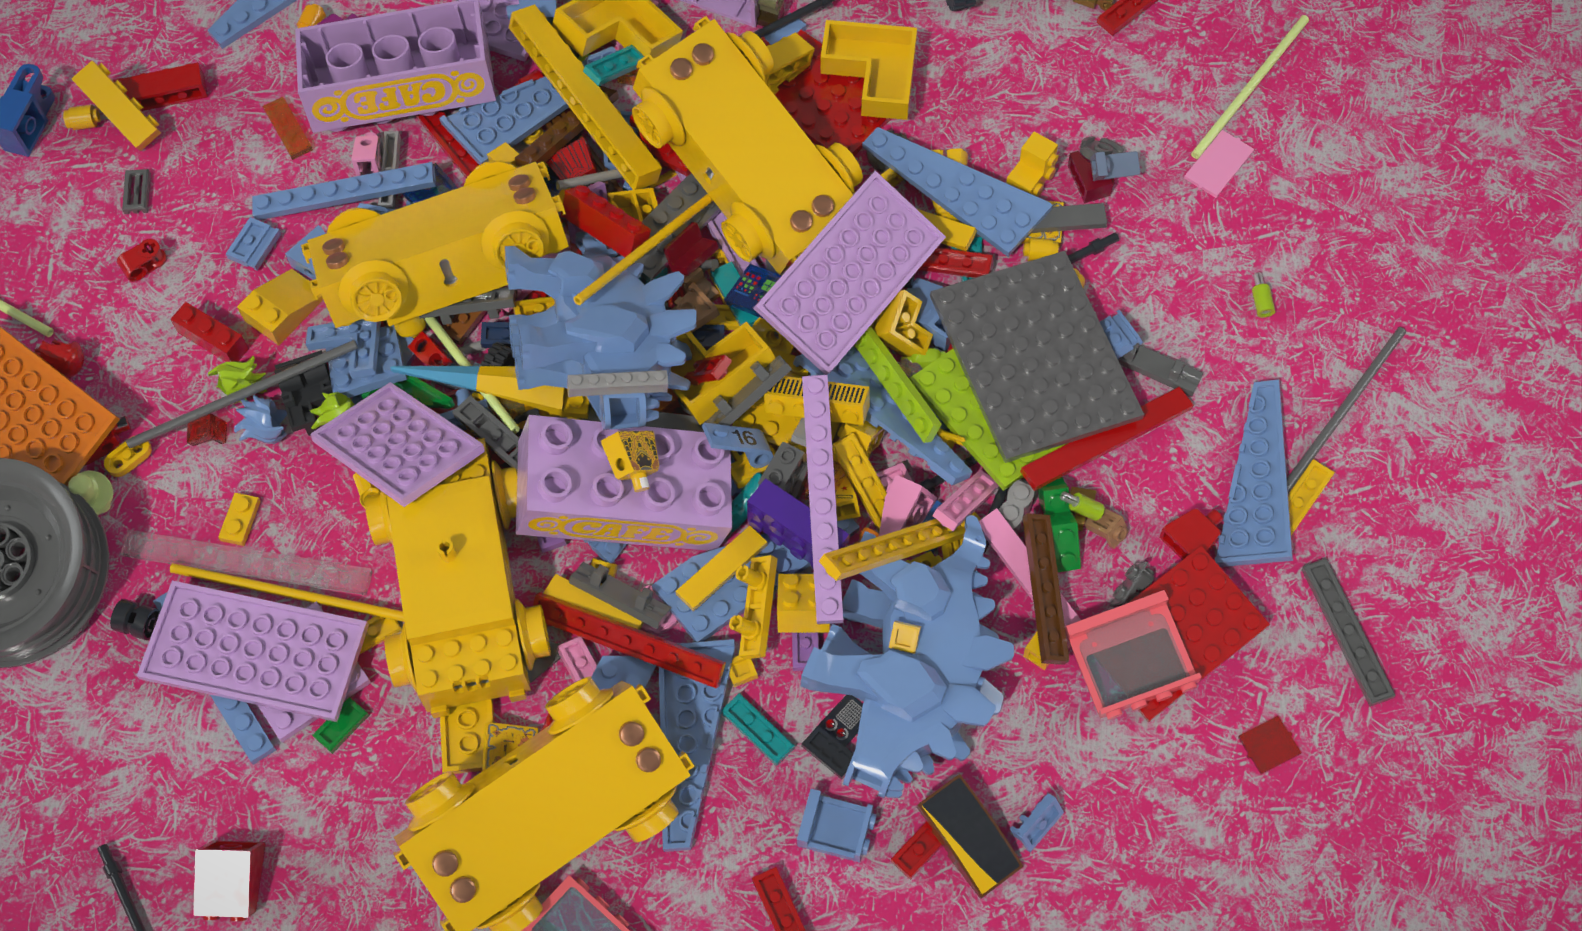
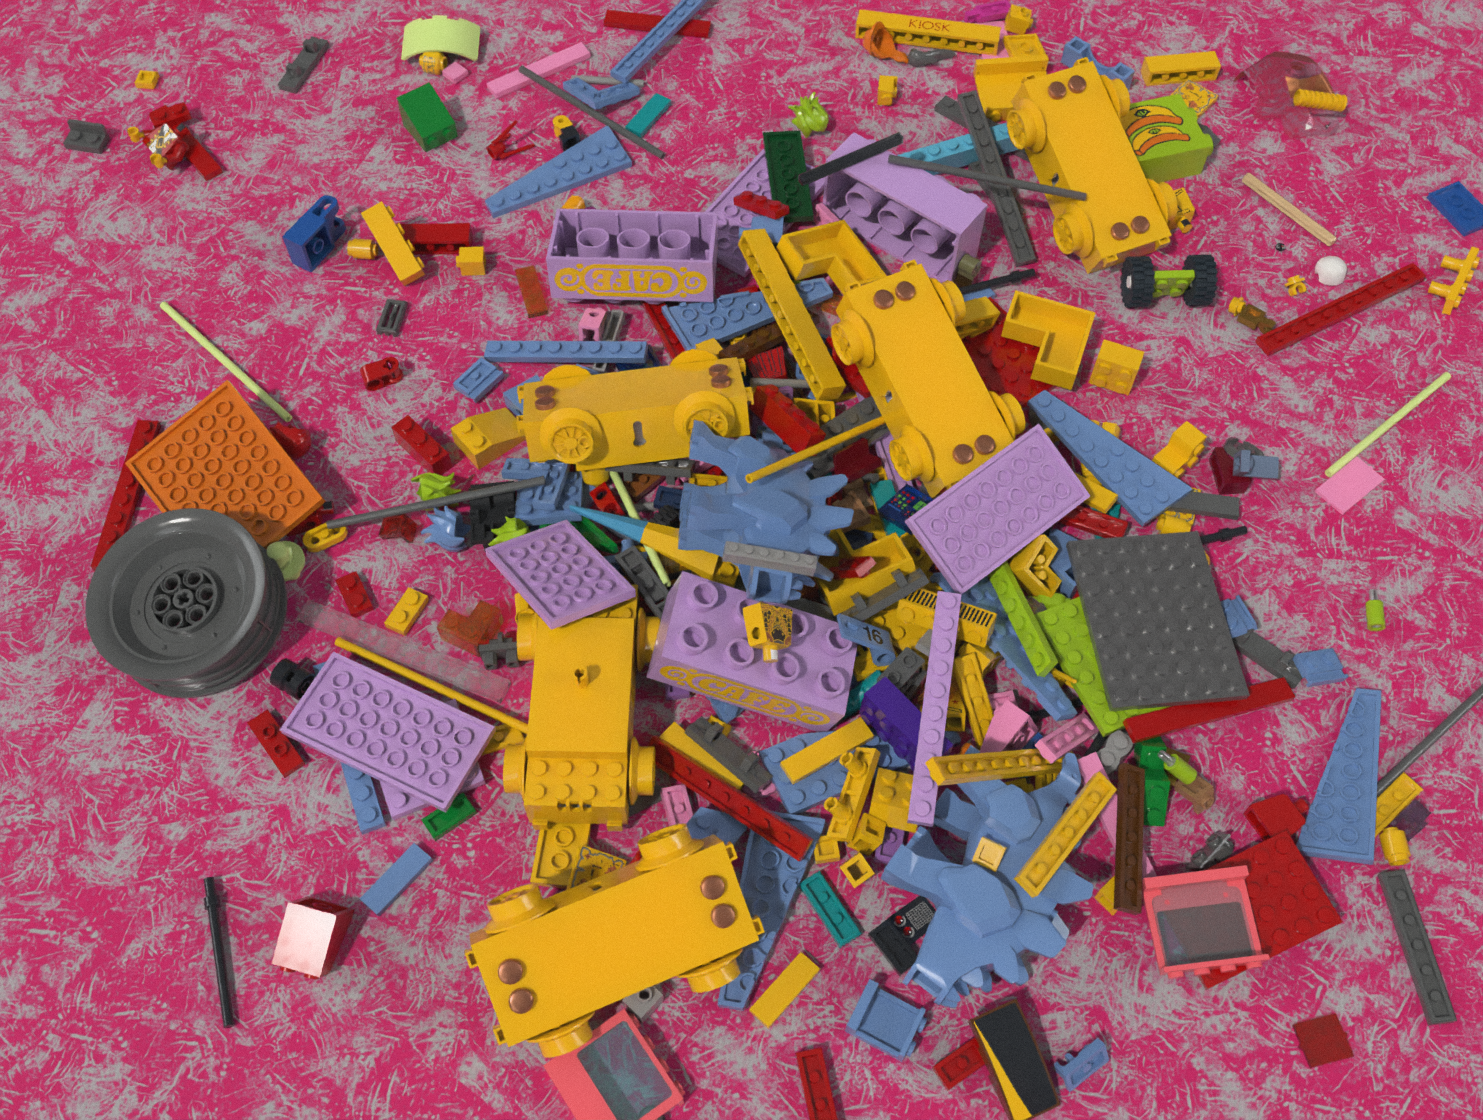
camera: 10 degrees right, 5 degrees down
(134, 691) = (276, 743): none -> red plate
(177, 513) = (354, 594): none -> red plate
(211, 106) = (471, 261): none -> yellow brick
(301, 802) = (396, 879): none -> medium blue tile
(319, 526) = (472, 631): none -> clear orange brick
(351, 538) = (499, 649): none -> dark grey hips
(588, 864) = (644, 1002): none -> light grey brick
(613, 65) = (820, 292): teal tile -> none
(728, 819) = (784, 990): none -> yellow tile
(777, 683) = (857, 869): none -> yellow brick
(781, 645) = (868, 834): none -> yellow brick
(950, 84) = (1116, 367): none -> yellow brick
(977, 599) = (1065, 834): none -> yellow plate
(1214, 368) = (1320, 667): none -> medium blue plate
(1313, 537) = (1395, 846): none -> yellow brick
(1325, 506) = (1411, 819): none -> clear purple brick

